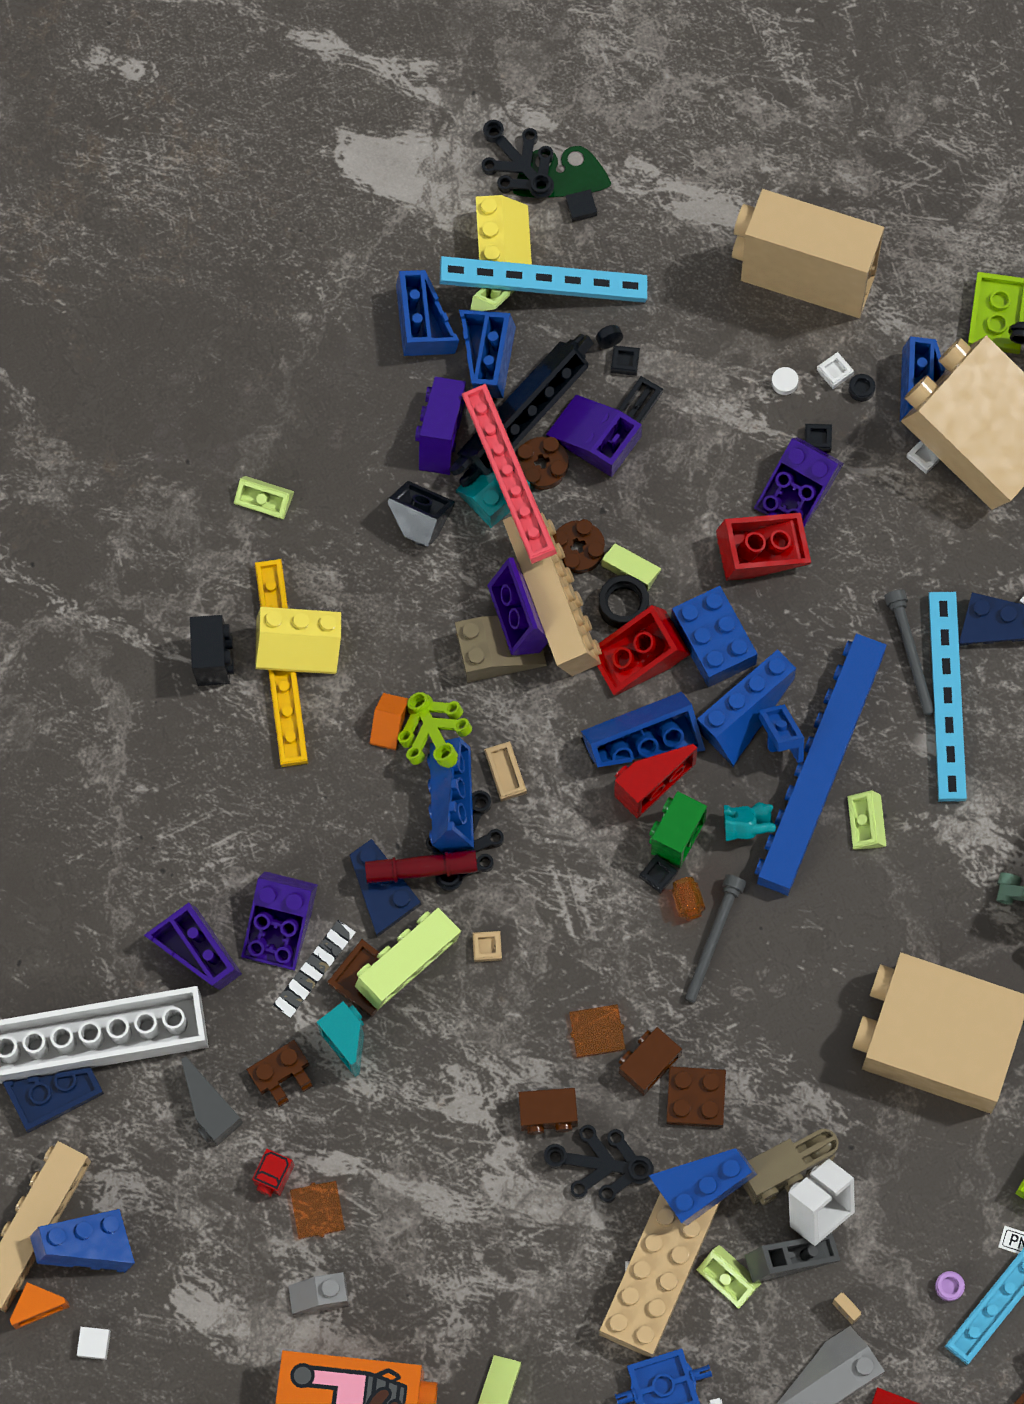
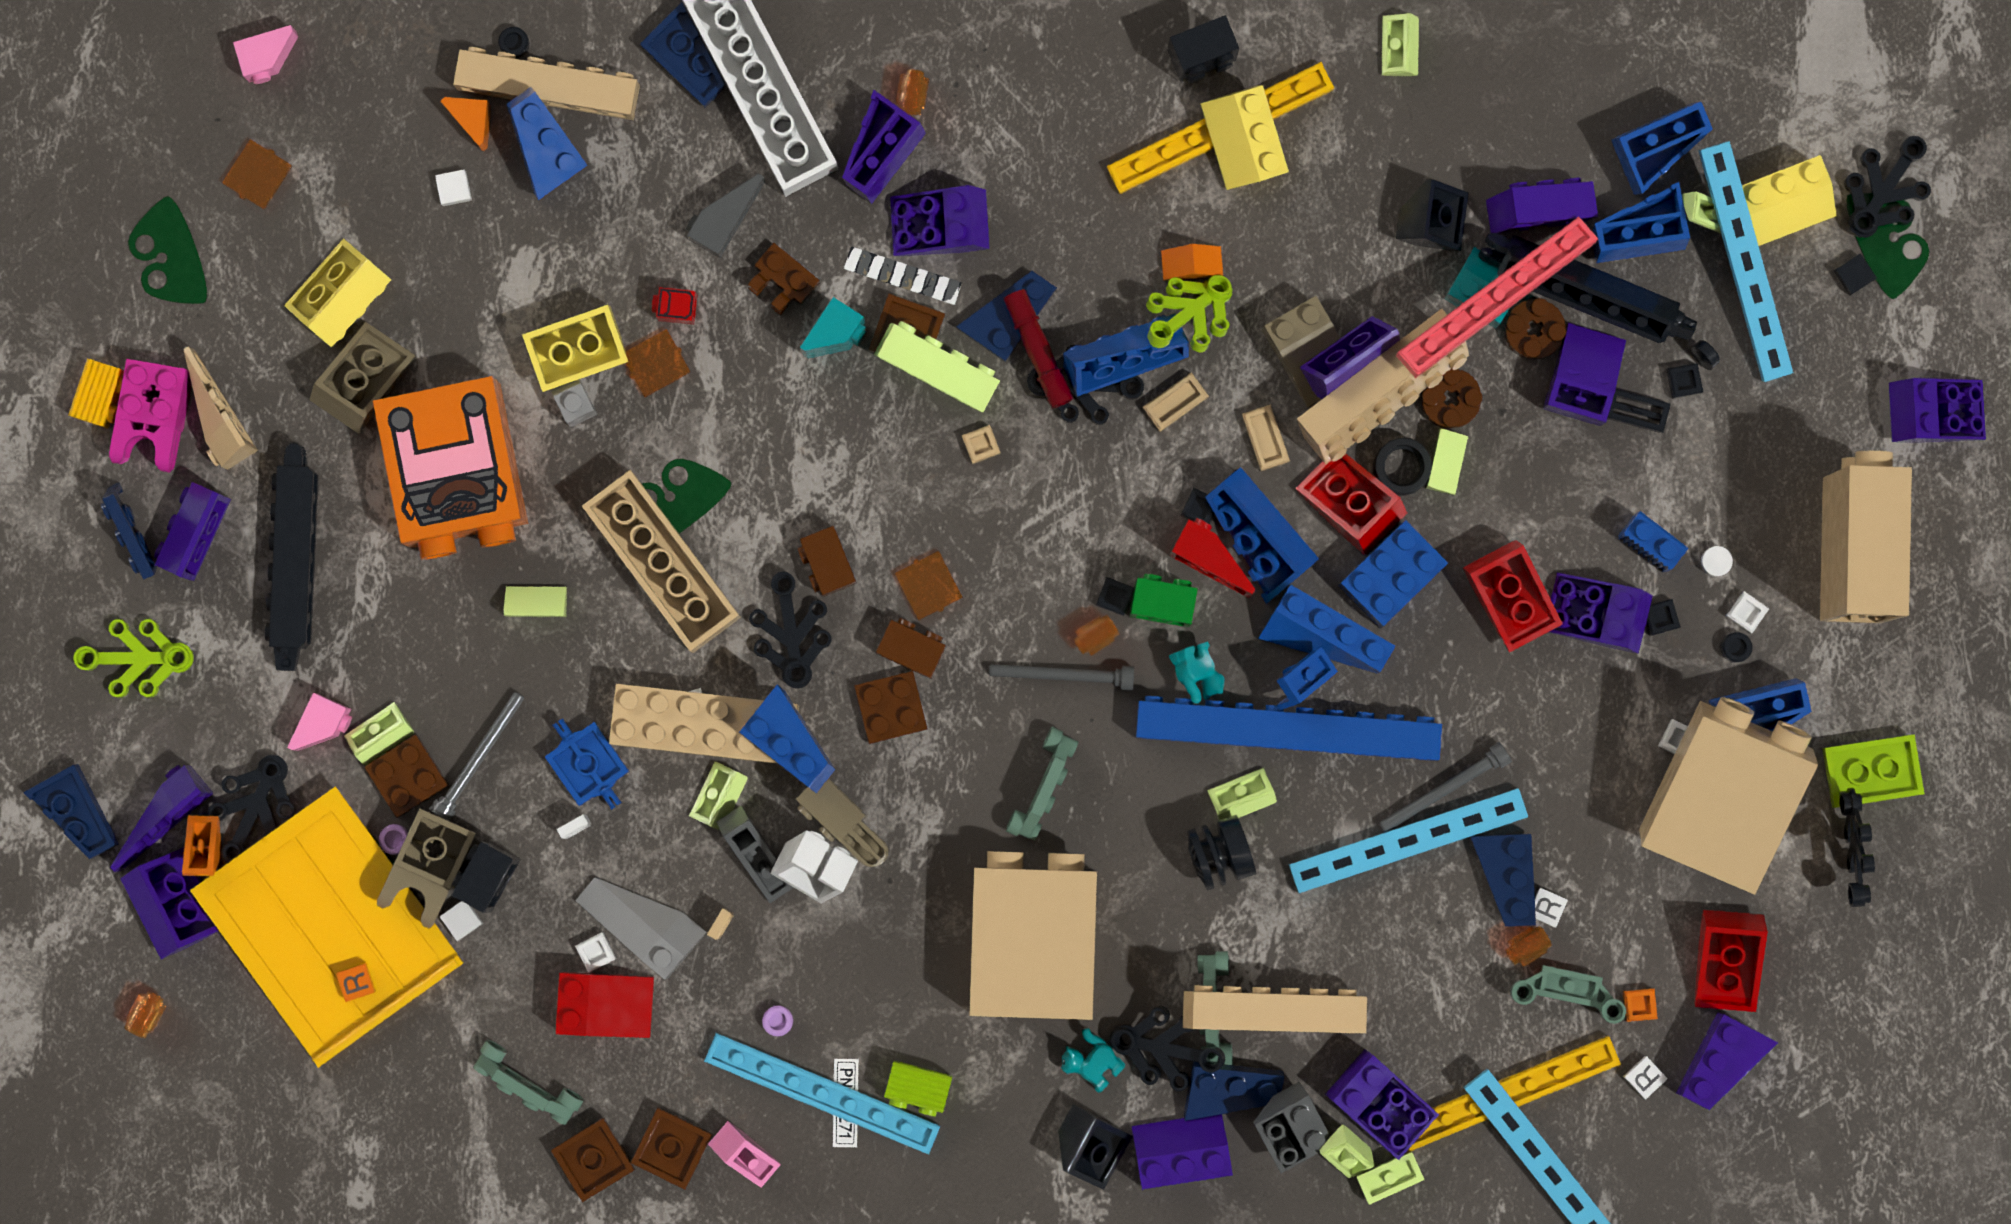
camera: 70 degrees right, 15 degrees up
(155, 906) = (912, 92): none -> clear orange brick
(281, 1272) = (575, 348): none -> light yellow slope
(462, 1242) = (694, 497): none -> dark green piece
(500, 1256) = (661, 561): none -> tan brick
(561, 706) = (1265, 438): none -> tan tile
(602, 780) = (1198, 507): none -> black tile
(714, 177) = (1936, 410): none -> dark purple slope
(753, 423) = (1653, 542): none -> blue brick
(819, 986) = (1027, 824): none -> sand green plate
(913, 847) = (1221, 852): none -> black wheel

